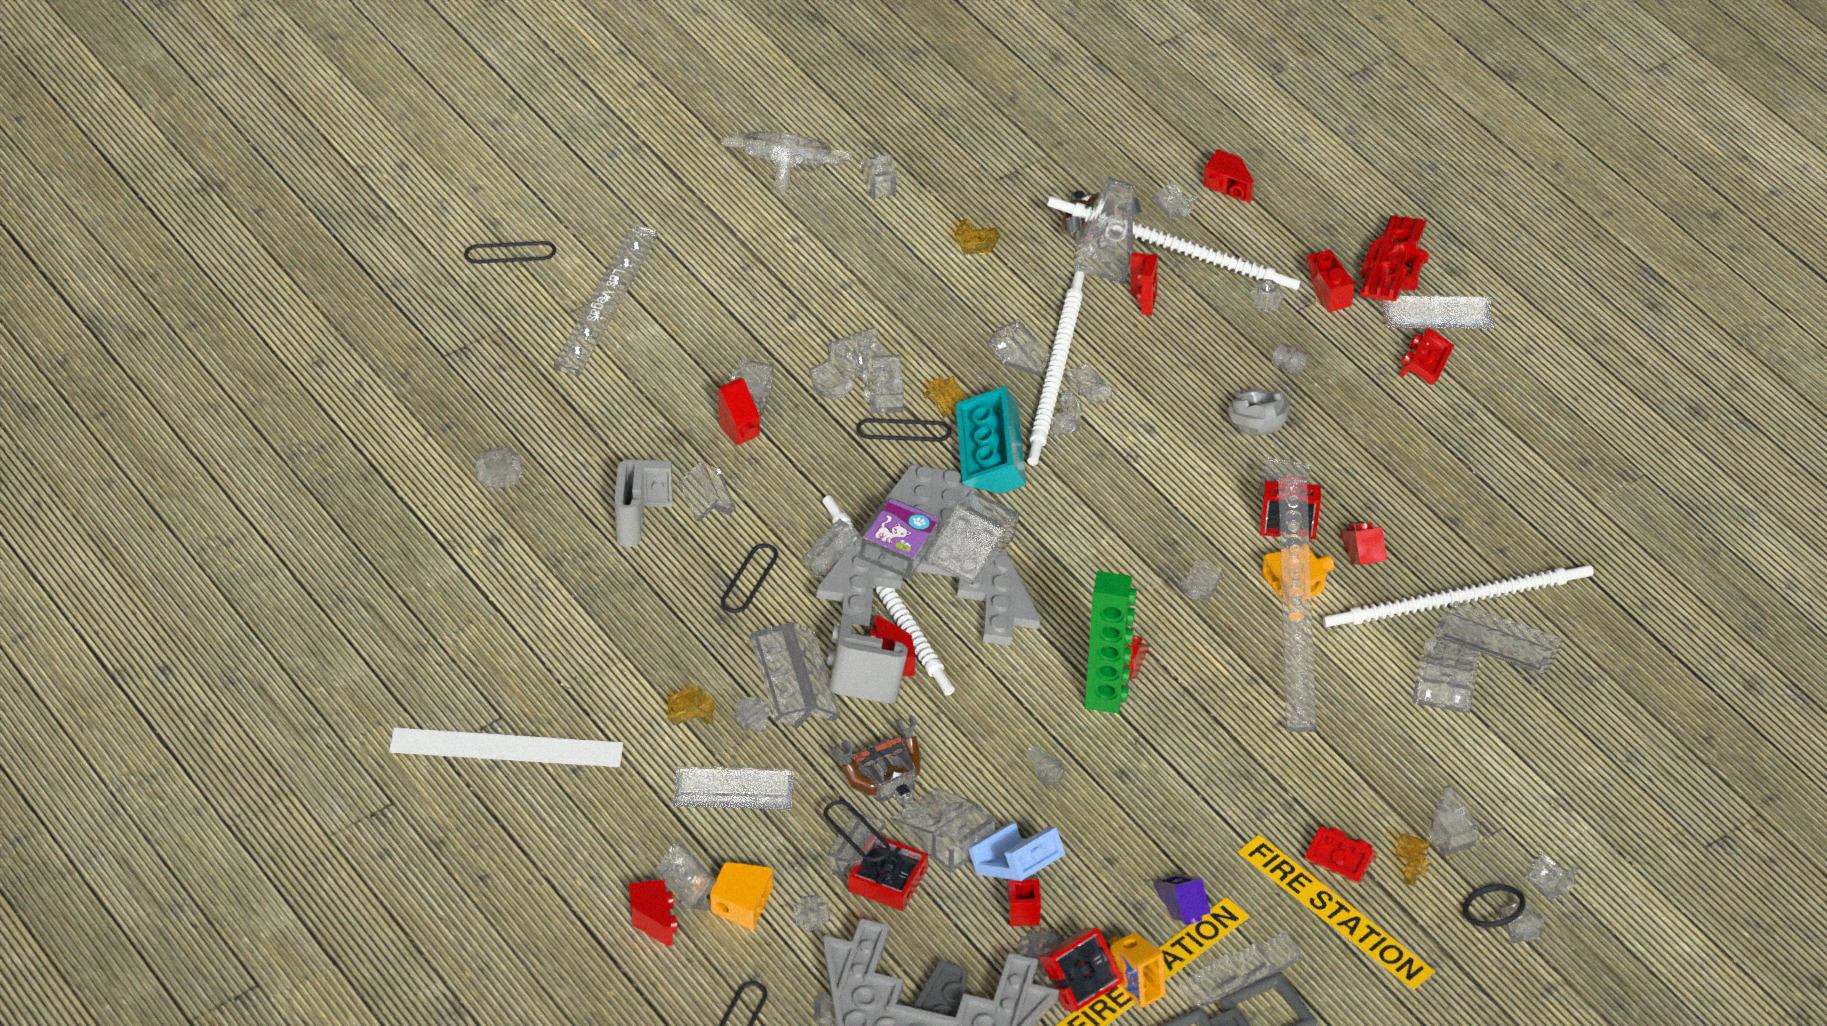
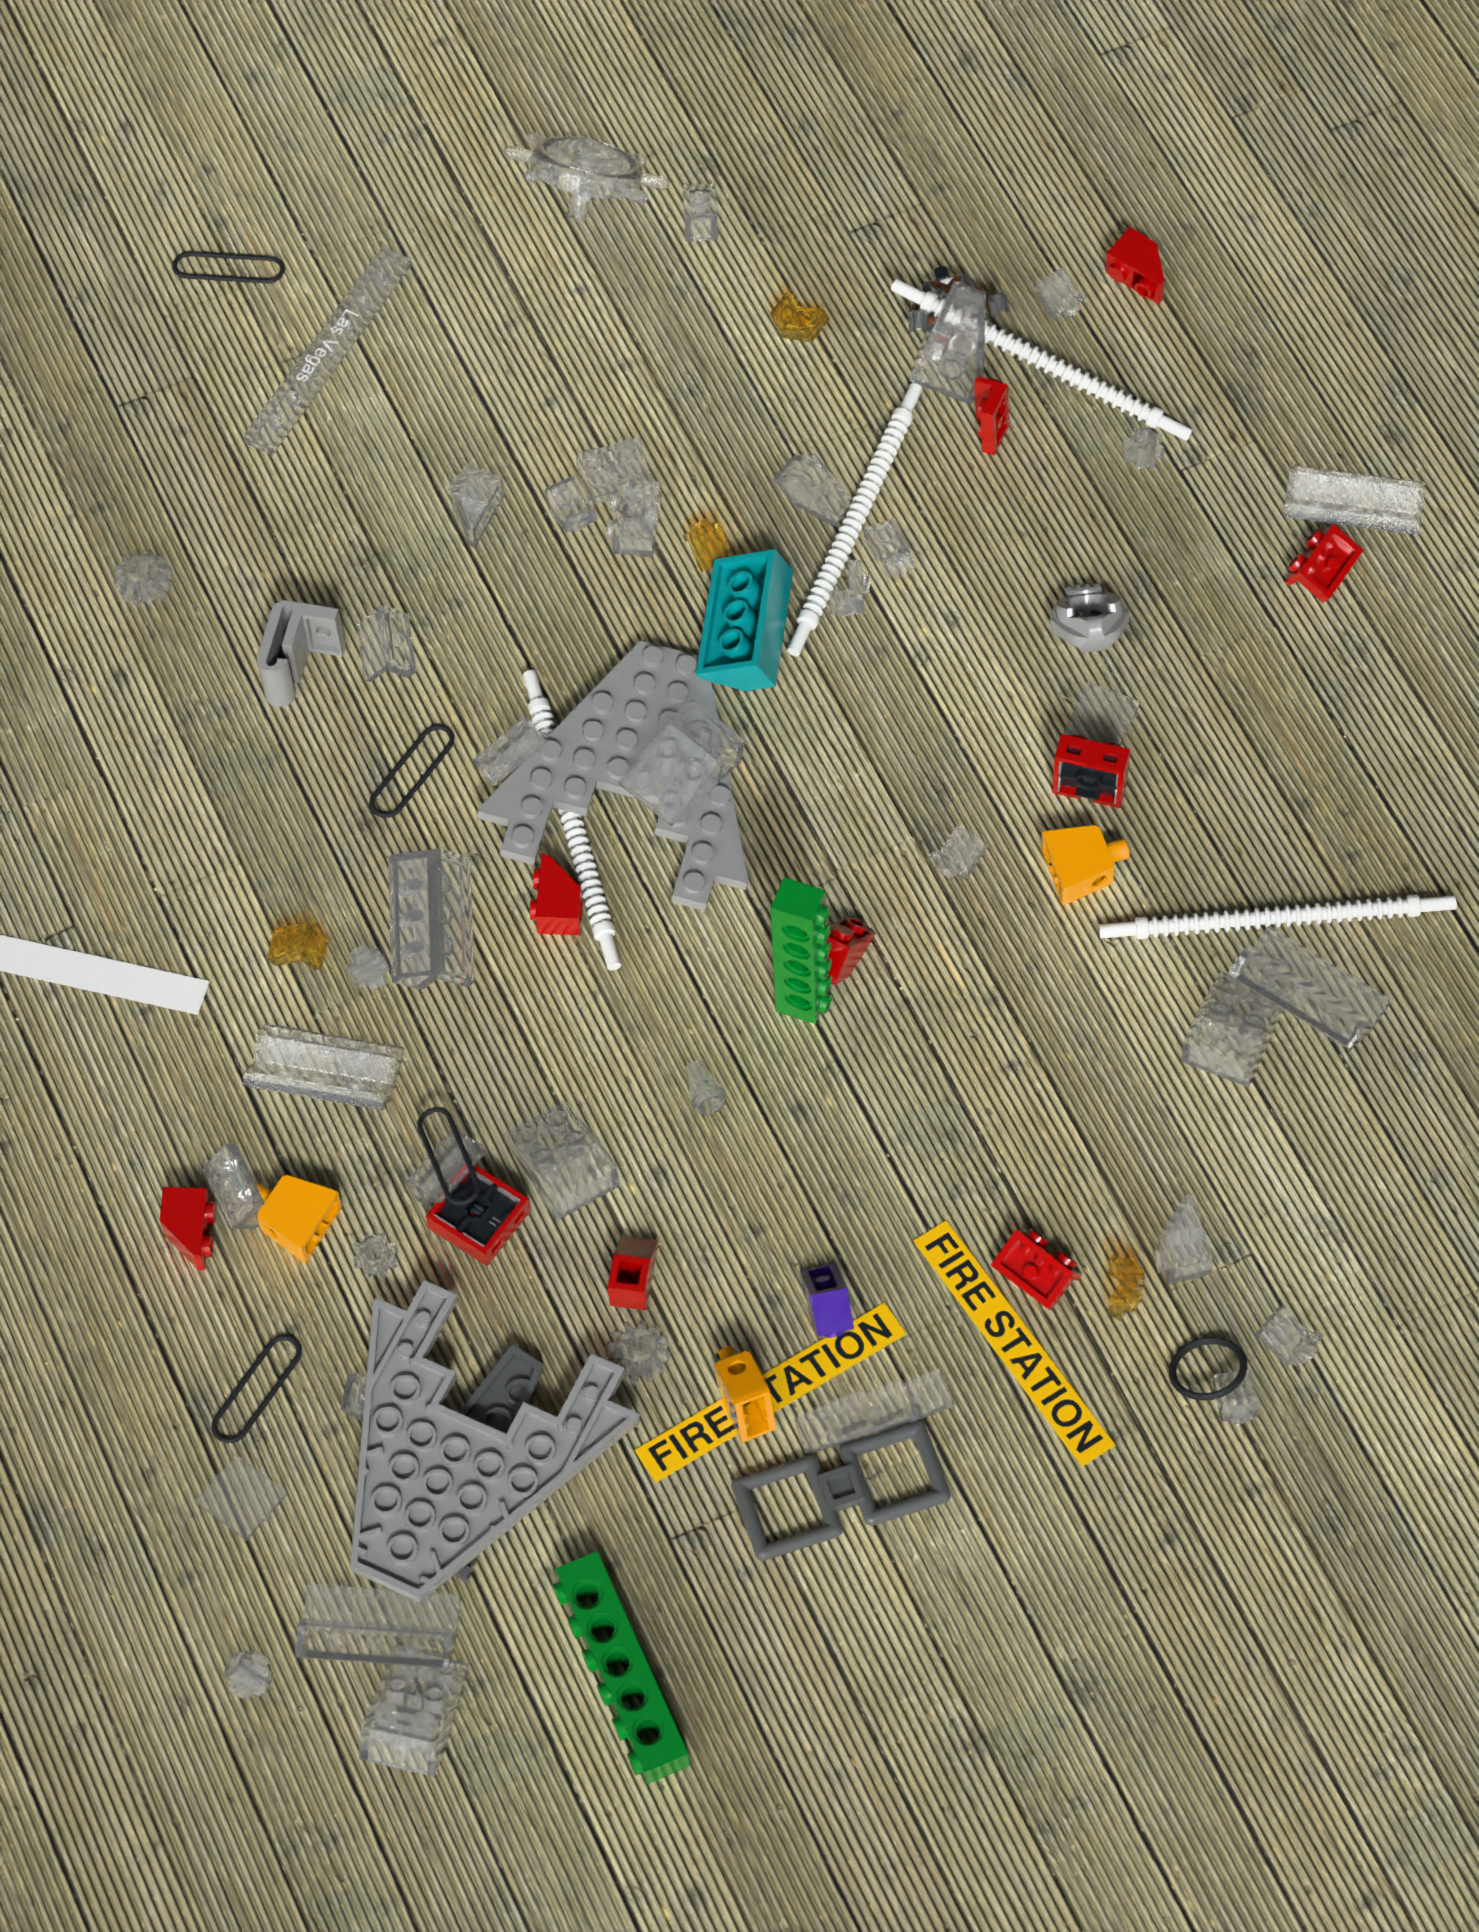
camera: 15 degrees right, 15 degrees up
(738, 412) = (444, 539): red slope -> none
(862, 667) = (505, 924): light grey piece -> none
(885, 768) = (508, 1067): torso -> none
(899, 538) = (592, 752): brick -> none
(907, 438) = (644, 595): black piece -> none
(1012, 857) = (632, 1214): light blue panel -> none
(1081, 968) = (675, 1387): piece -> none
(1289, 359) = (1148, 545): clear wheel -> none
(1296, 604) = (1061, 911): clear plate -> none
(1330, 281) = (1227, 437): red slope -> none
(1364, 543) = (1175, 827): slope -> none
(1386, 260) = (1305, 410): red piece -> none

